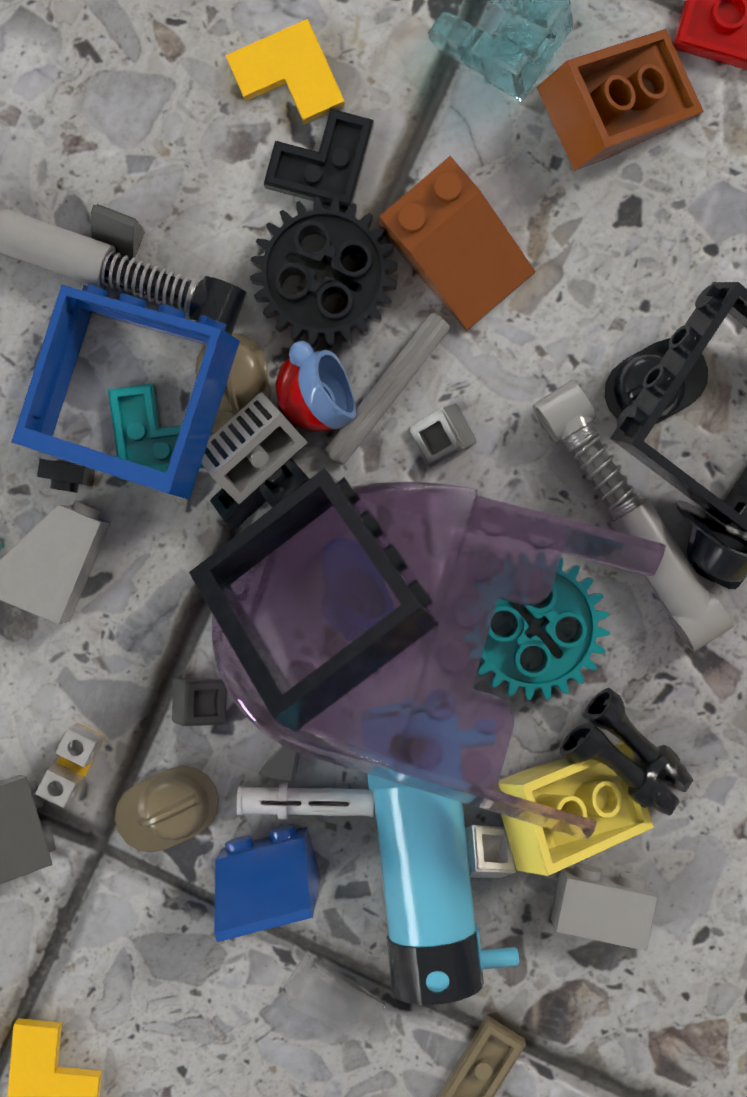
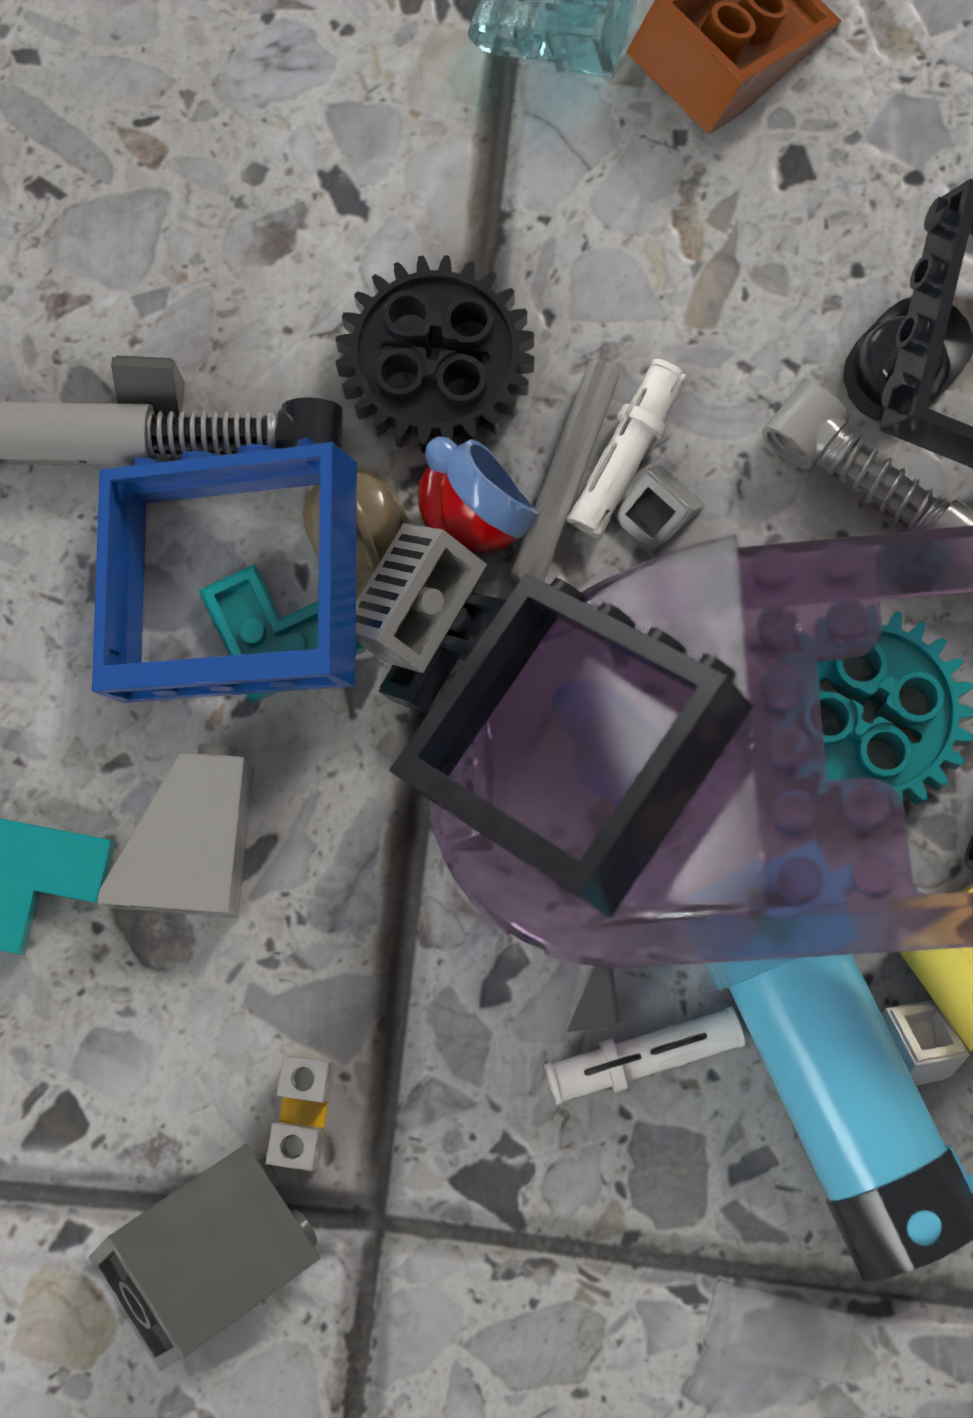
camera: 10 degrees left, 10 degrees down
(65, 475) = (176, 715): black plate -> none
(166, 809) = (453, 1136): dark tan piece -> none
(198, 701) = (450, 967): dark grey slope -> none
(265, 882) = (630, 1171): blue slope -> none
(289, 59) = (305, 117): yellow tile -> none
(326, 173) = (400, 231): black tile -> none
(441, 380) = (637, 428): none -> white pin
(456, 243) = (592, 265): dark orange slope -> none

